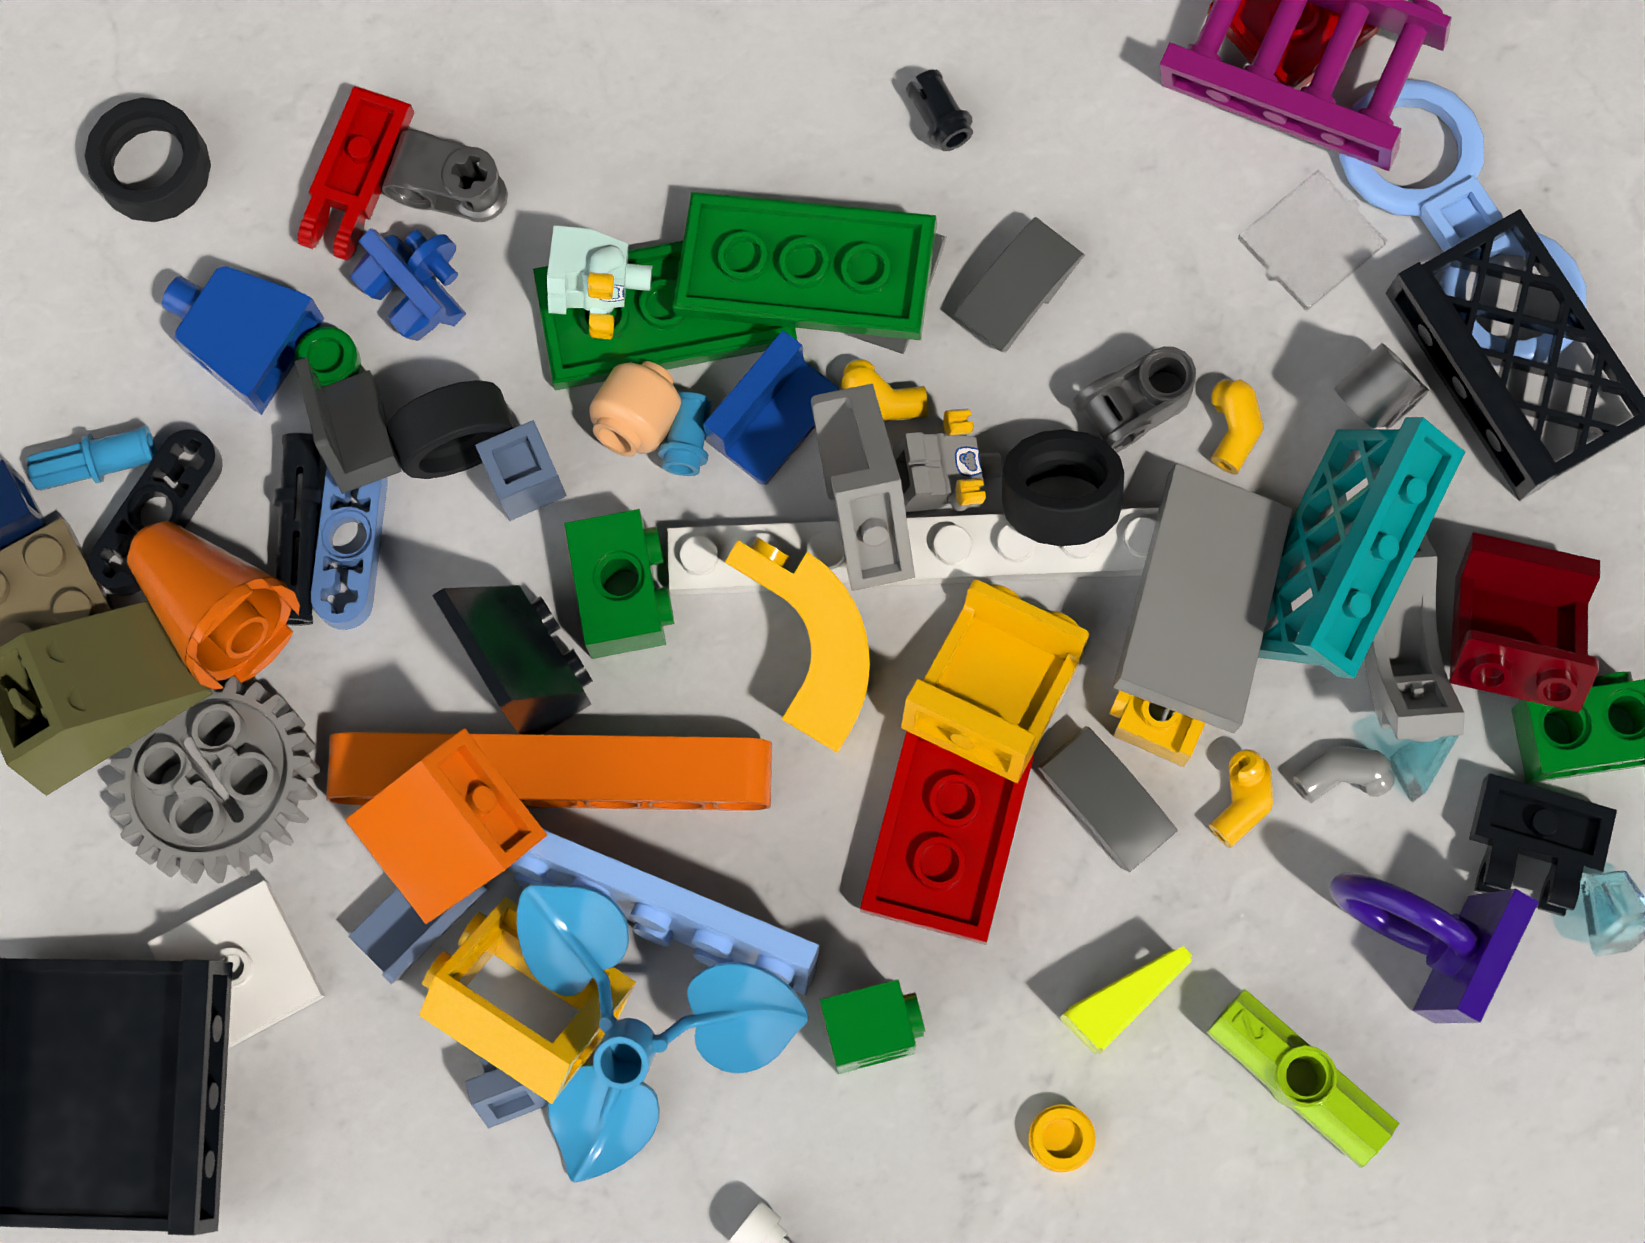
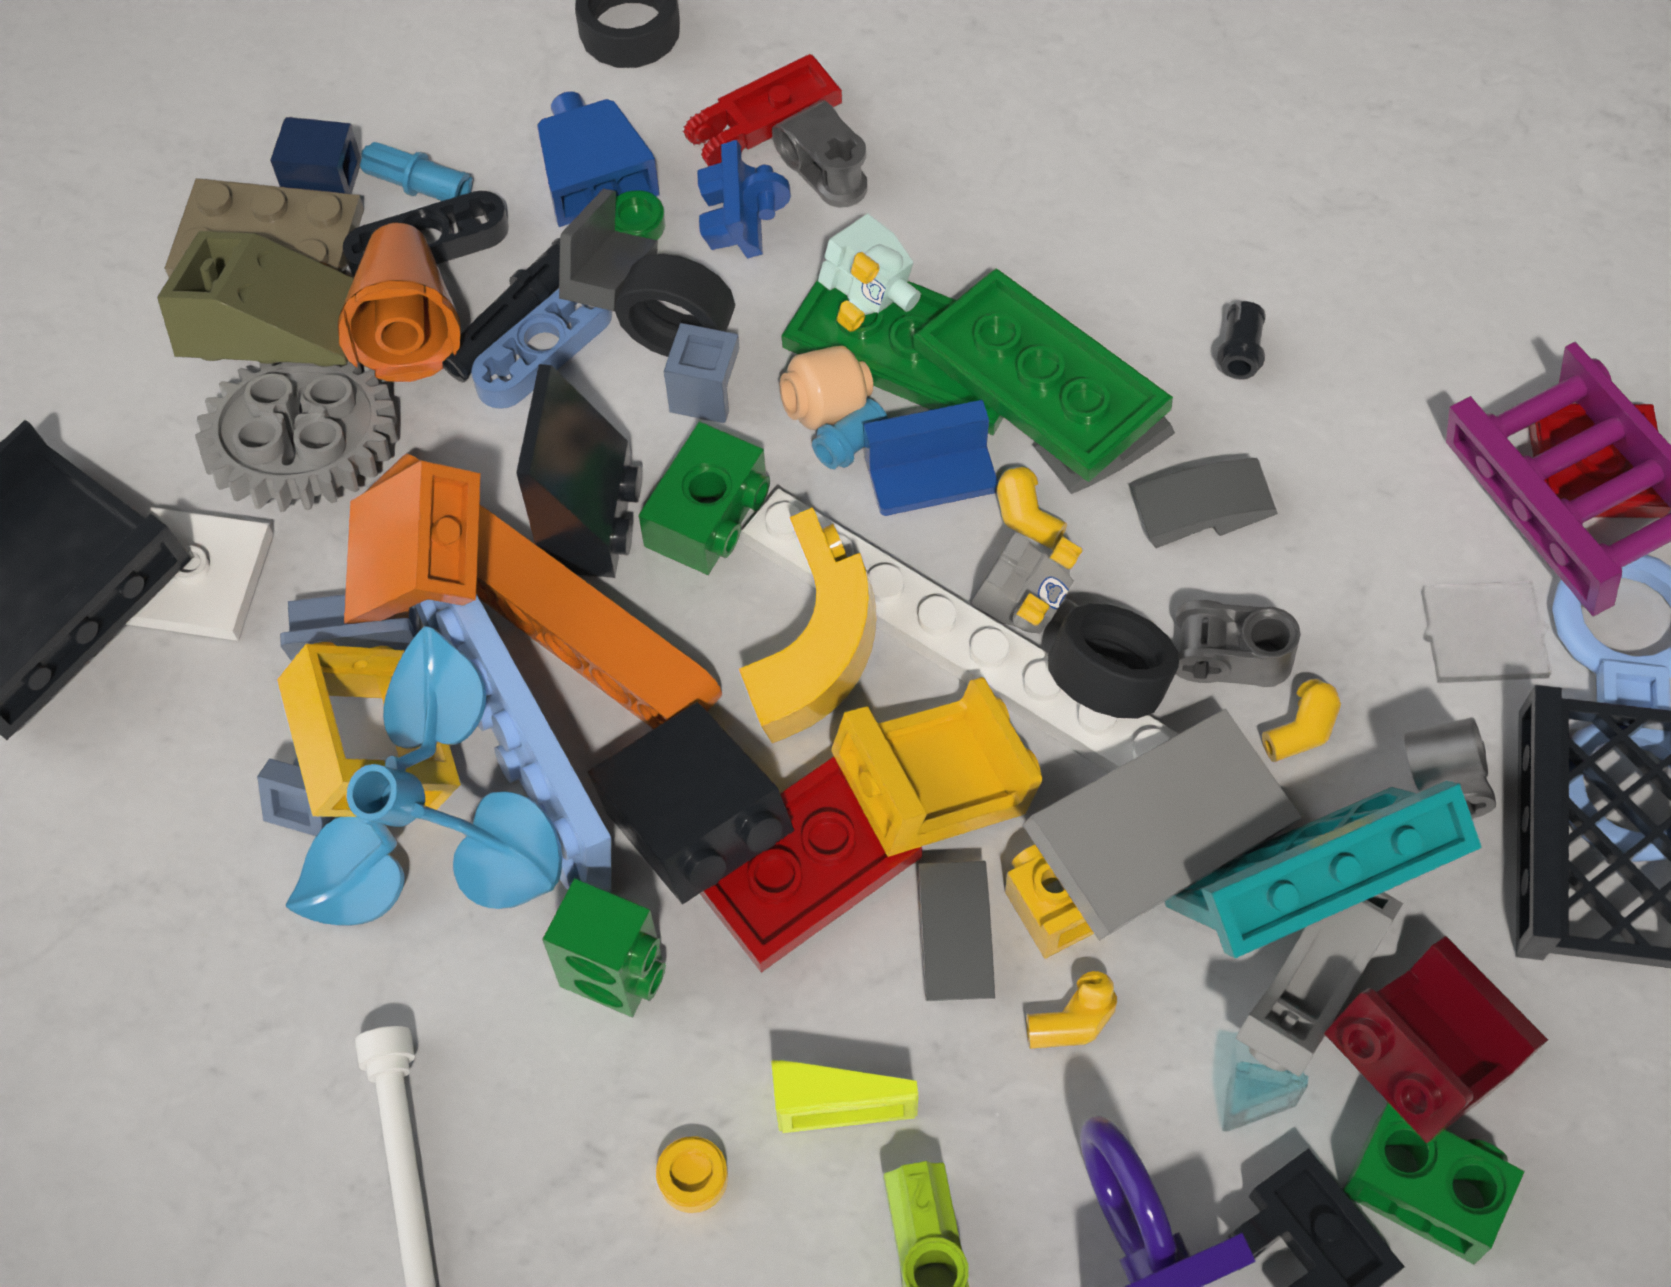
camera: 35 degrees right, 15 degrees down
(833, 857) = (691, 802): none -> black brick
(865, 486) = (943, 542): light grey panel -> none
(1348, 765) = (1186, 1054): light grey arm -> none

